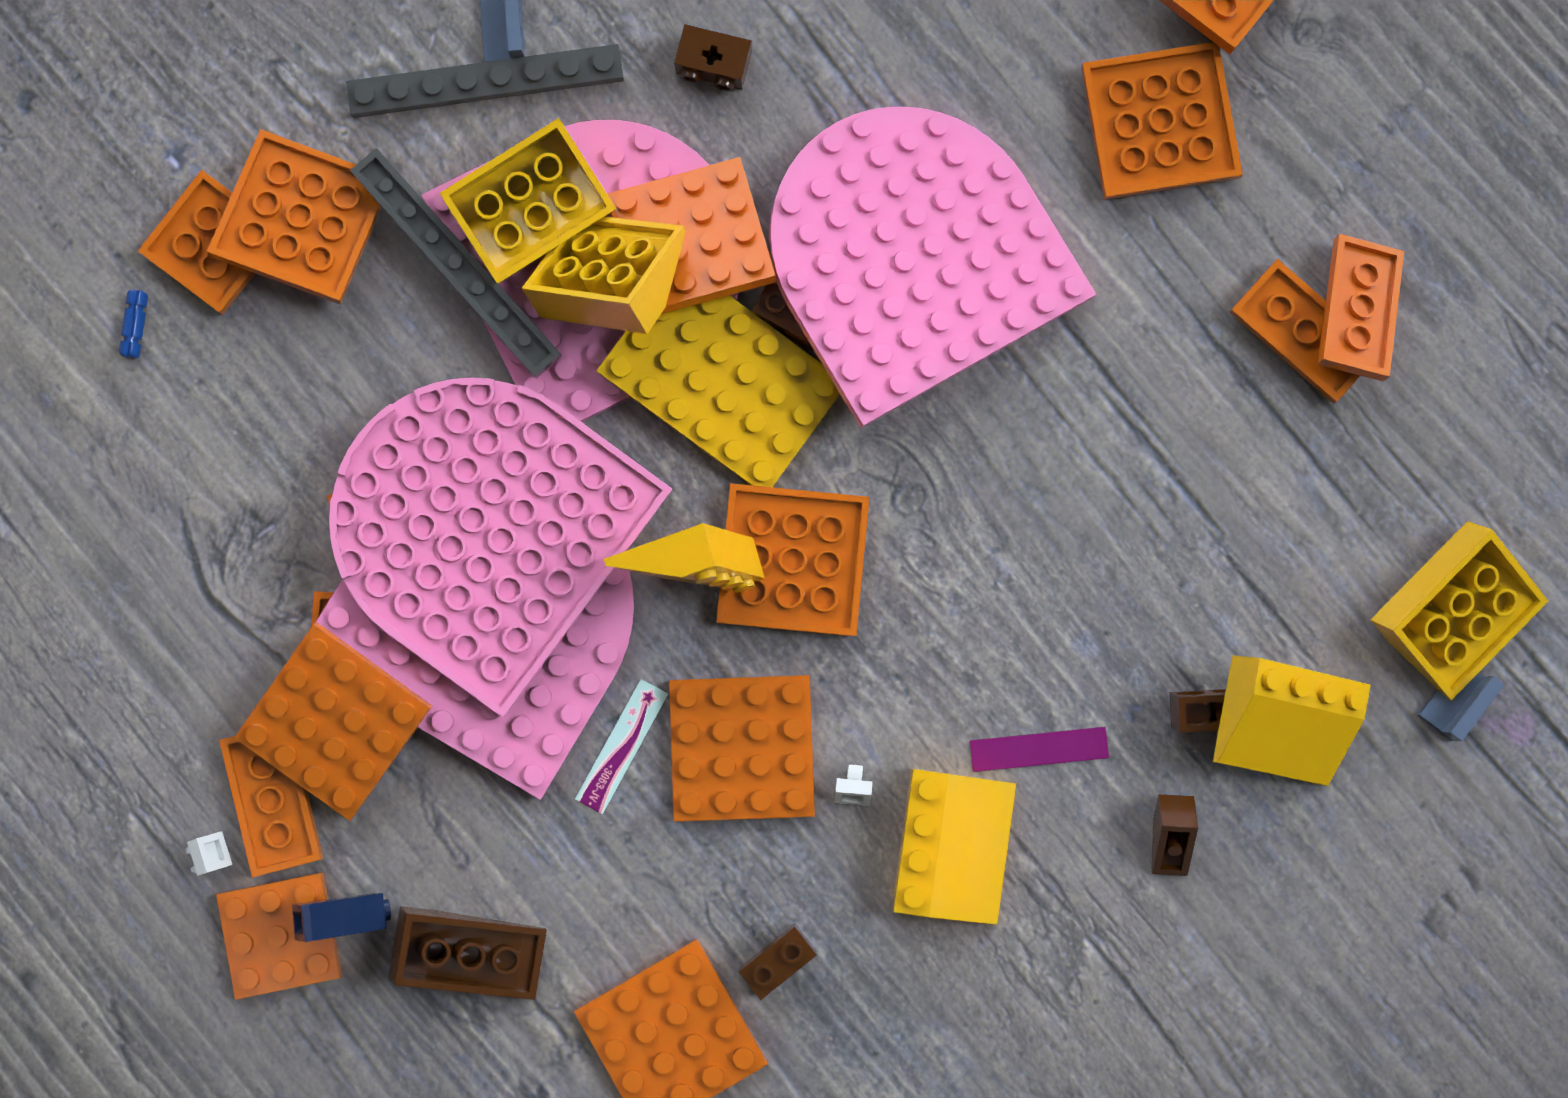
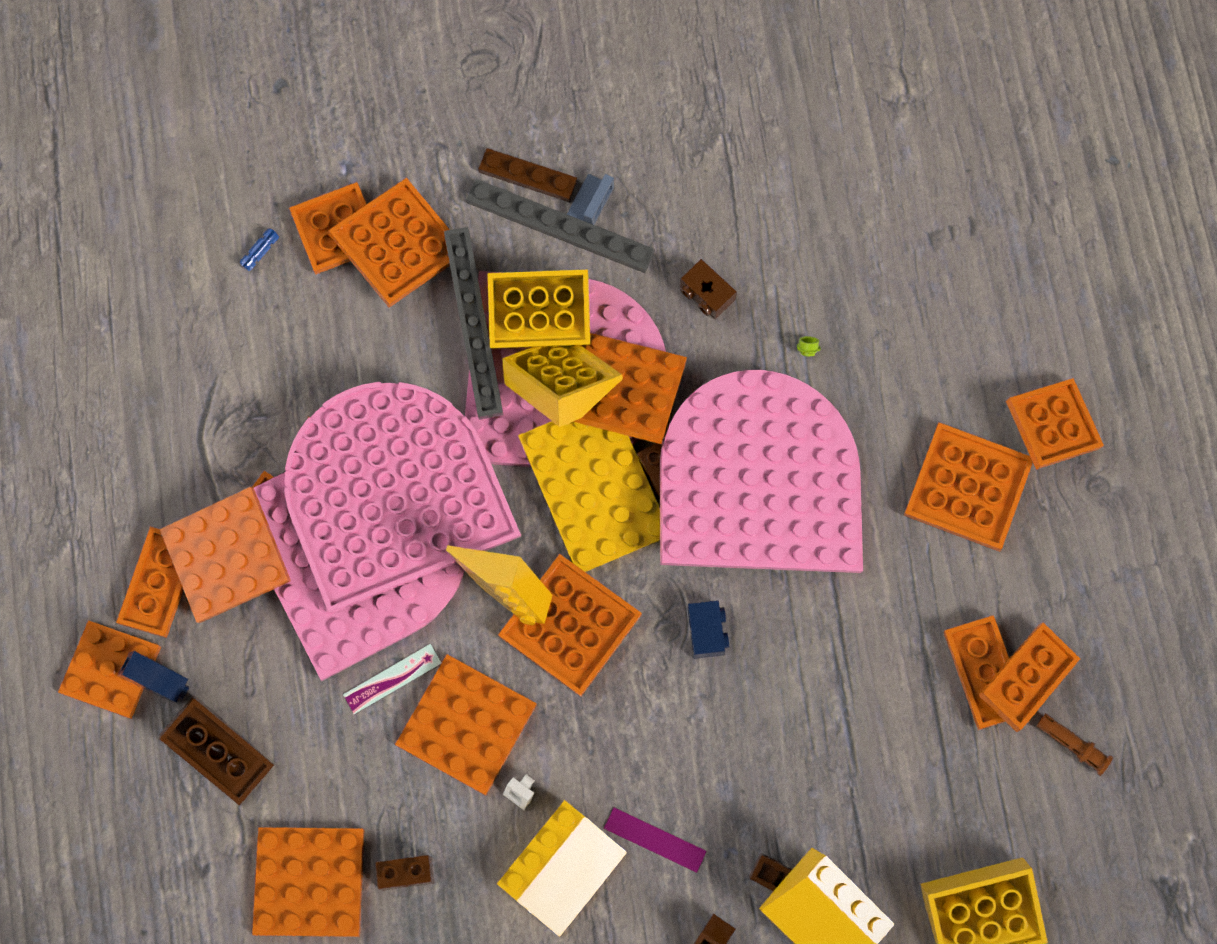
camera: 30 degrees right, 10 degrees down
(208, 853) = (100, 592): white tile -> none
(406, 39) = (527, 175): none -> reddish brown plate
(874, 58) = (808, 346): none -> lime plate
(956, 470) = (707, 630): none -> dark blue brick
(1467, 356) = (1085, 751): none -> dark orange pin

